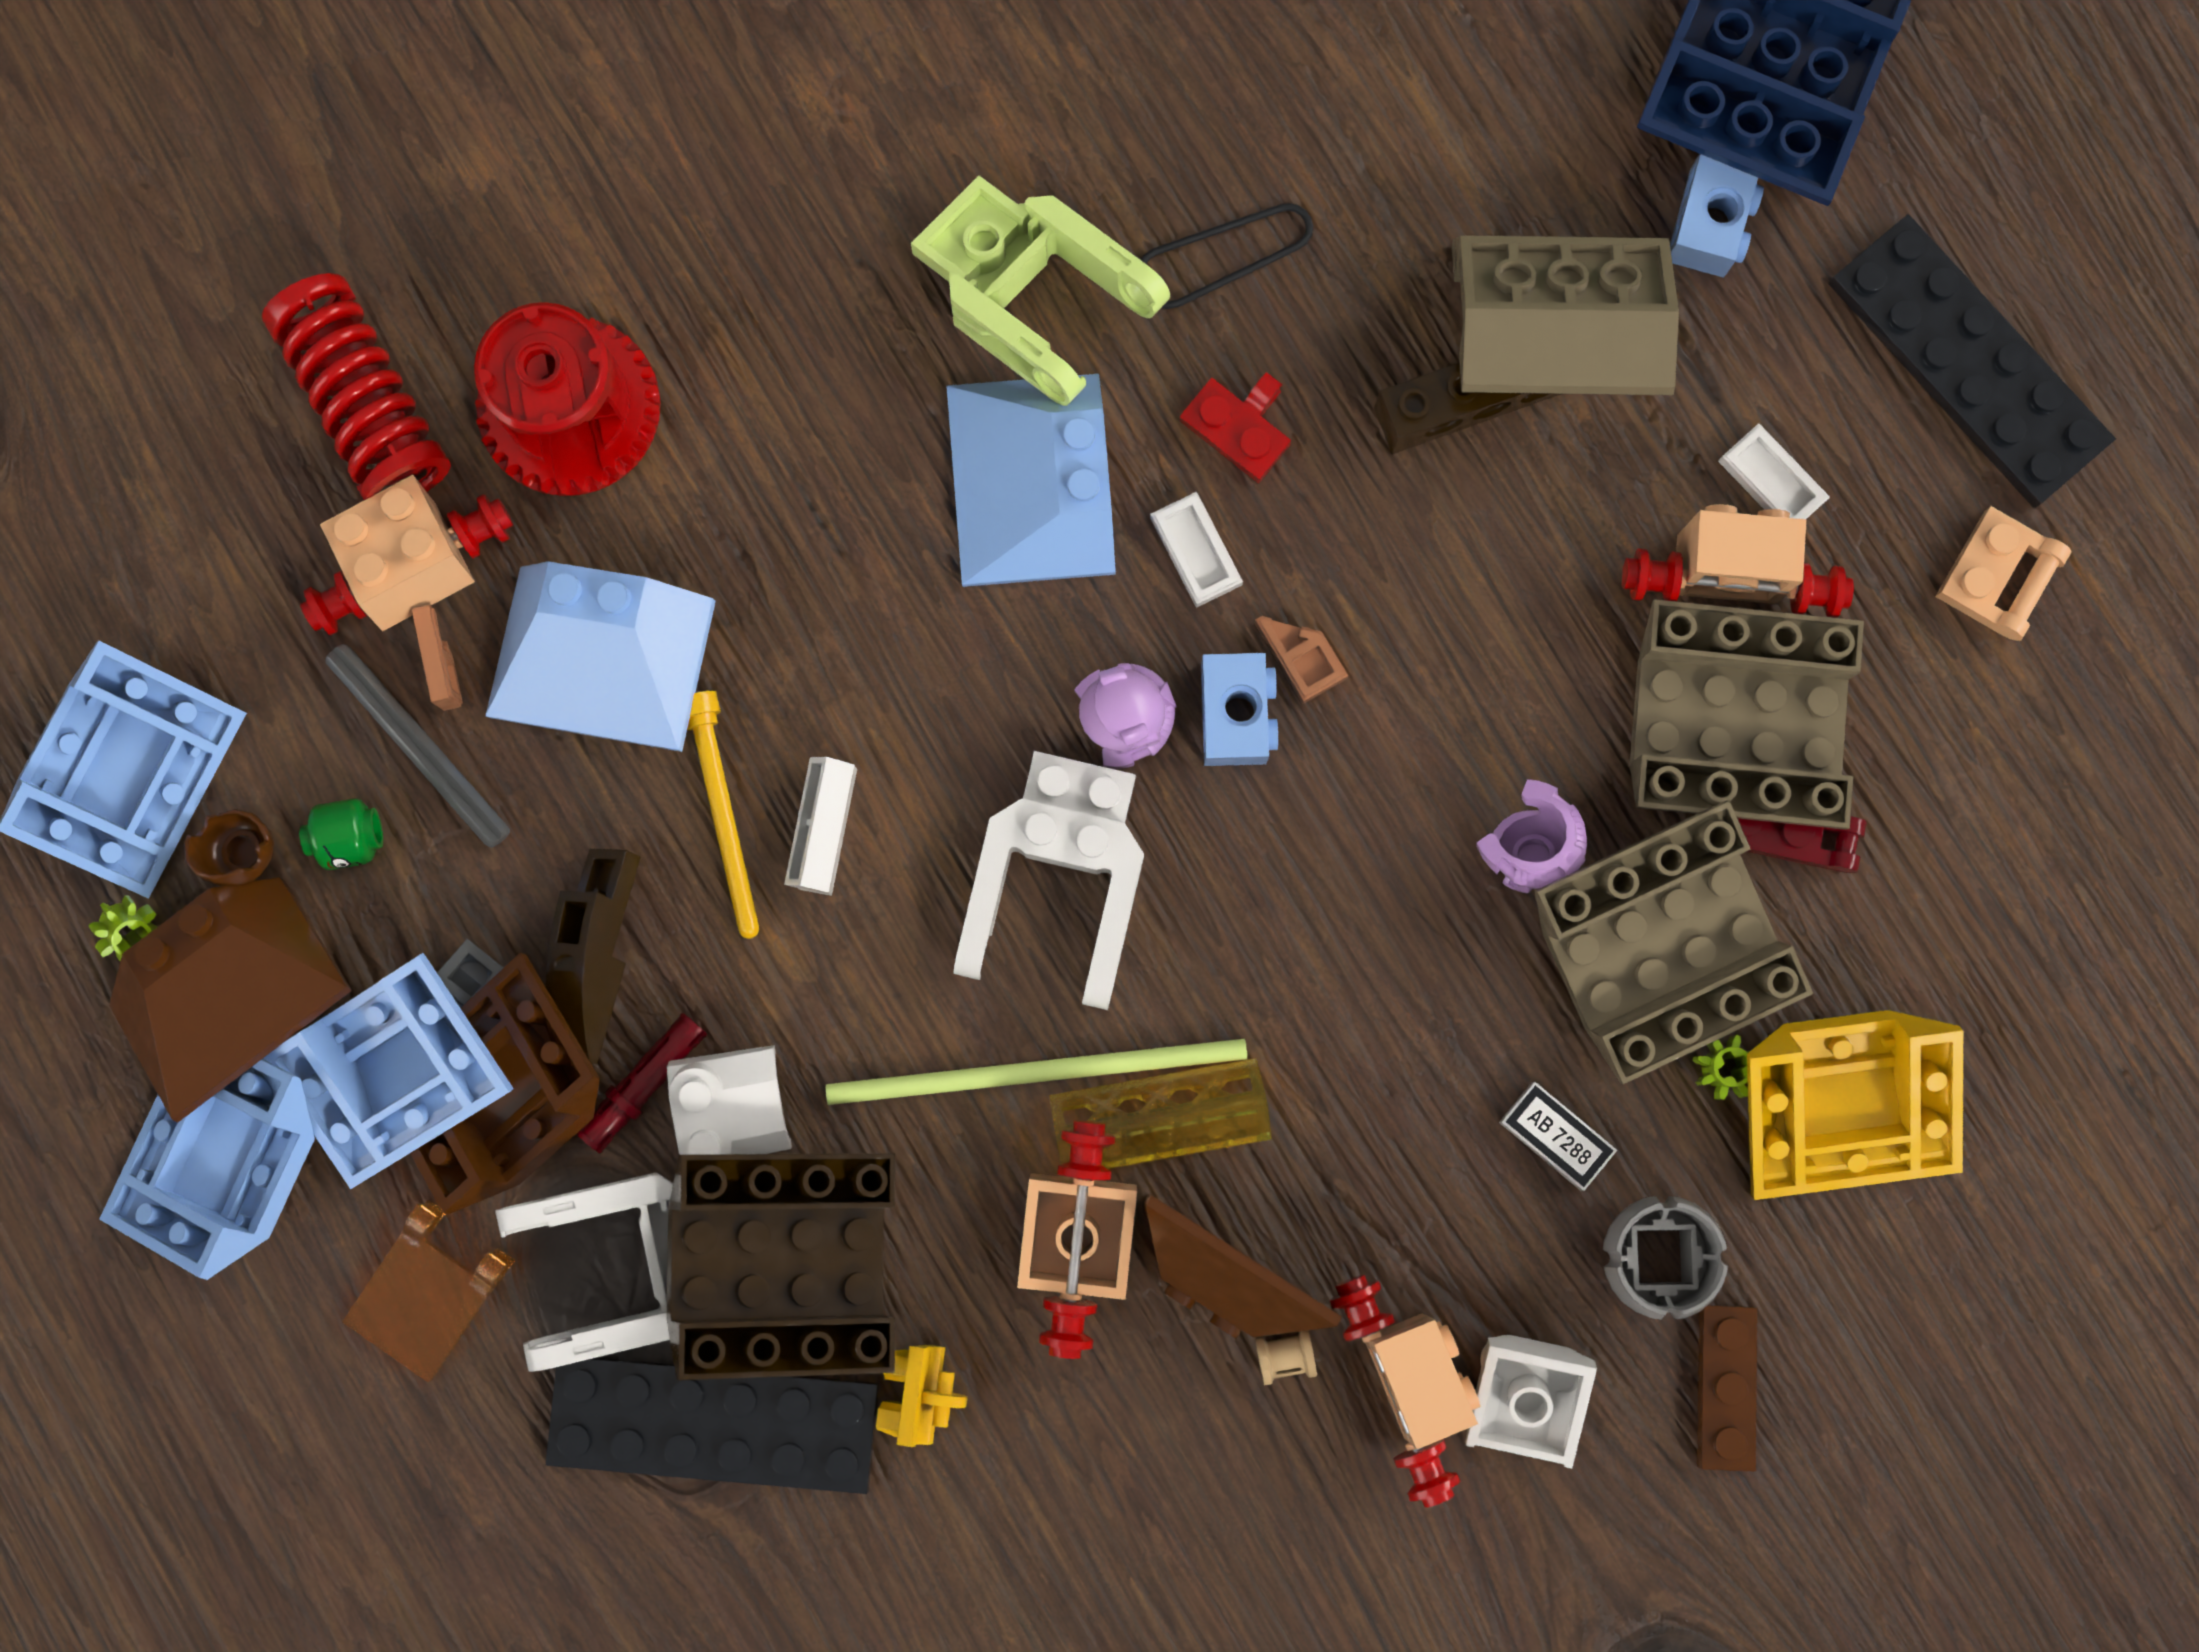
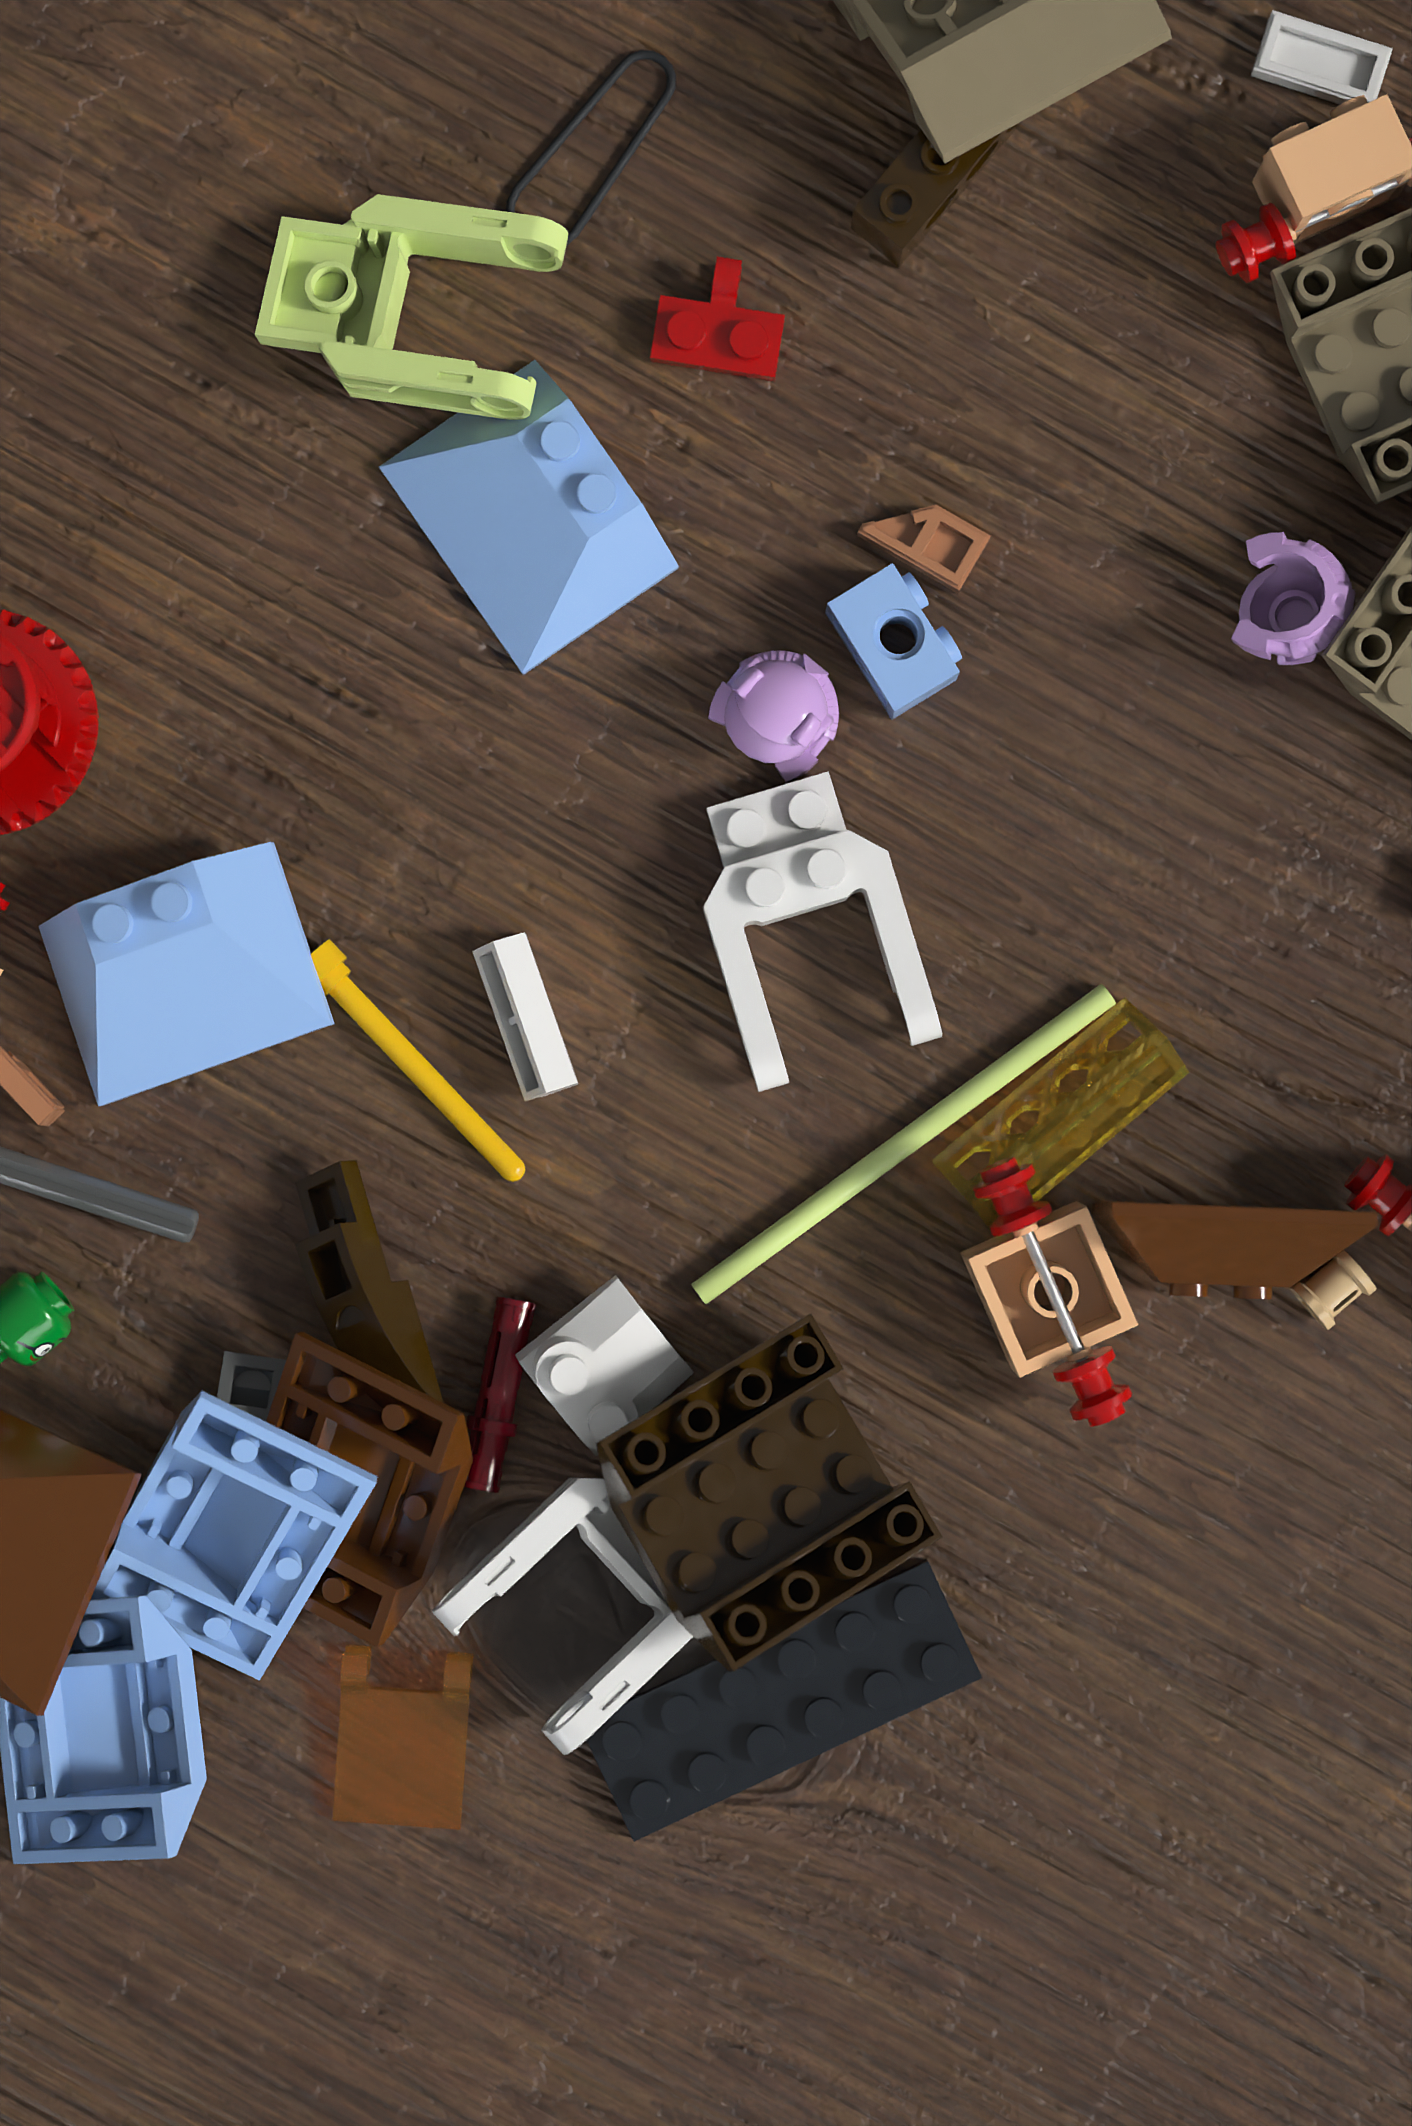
camera: 30 degrees left, 5 degrees up
(925, 1396) = (987, 1544): yellow hips -> none
(1196, 549) = (750, 491): white tile -> none

